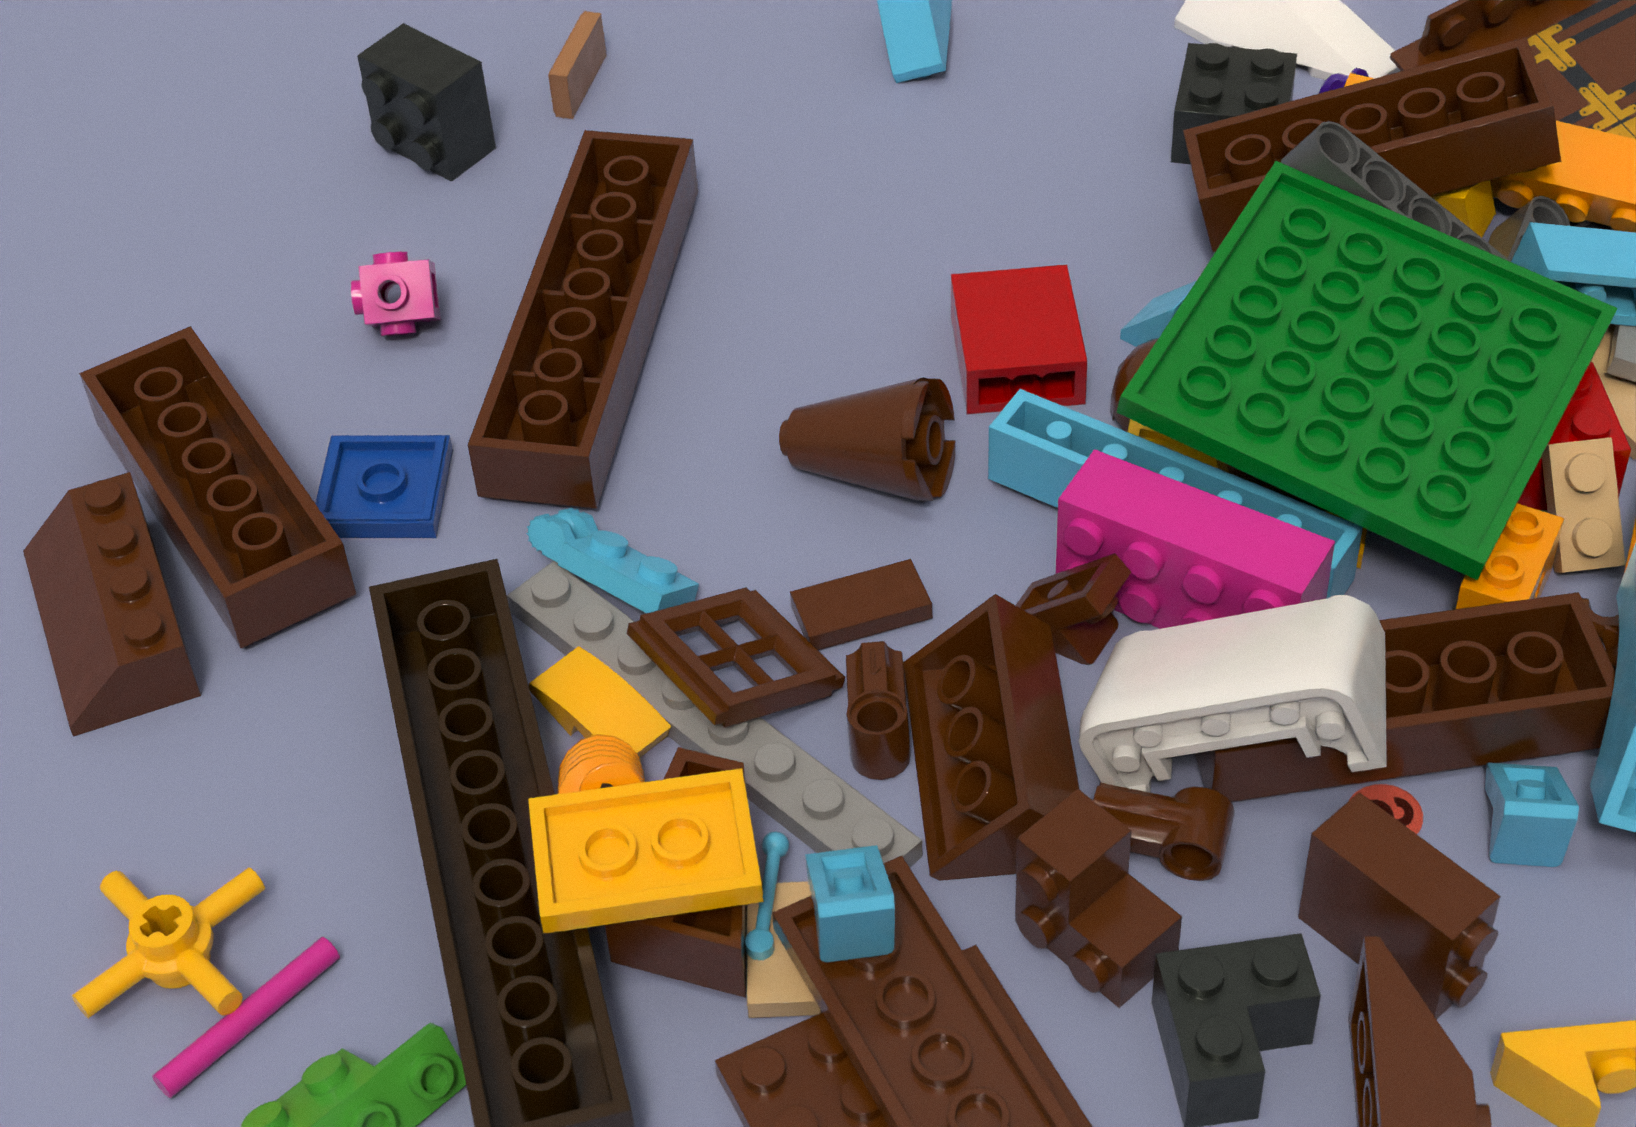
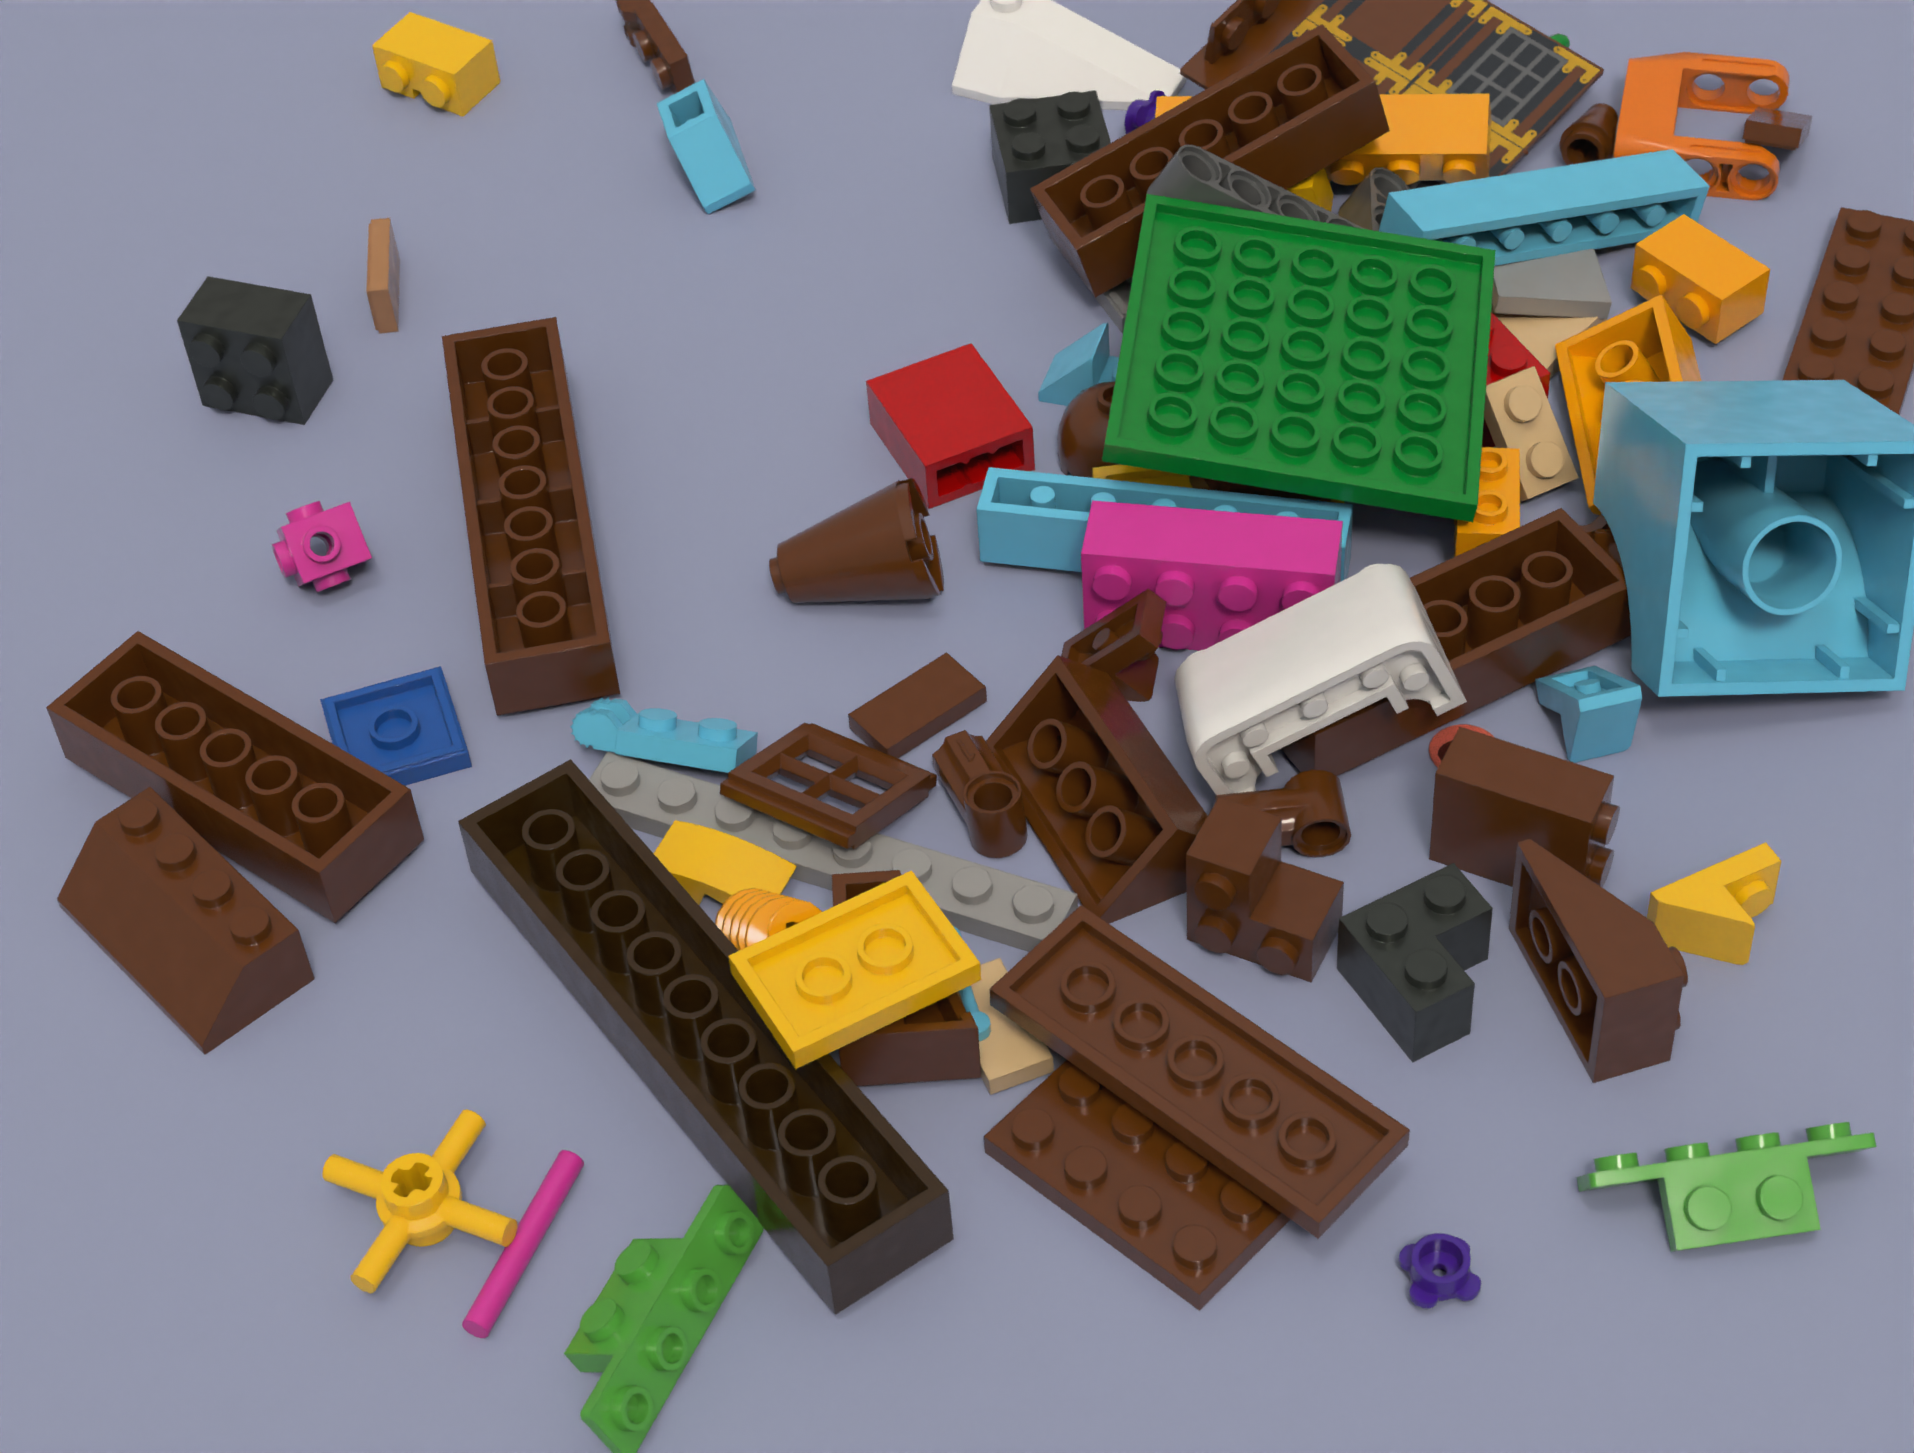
camera: 20 degrees left, 0 degrees up
(851, 903) = (1071, 952): medium azure slope -> none

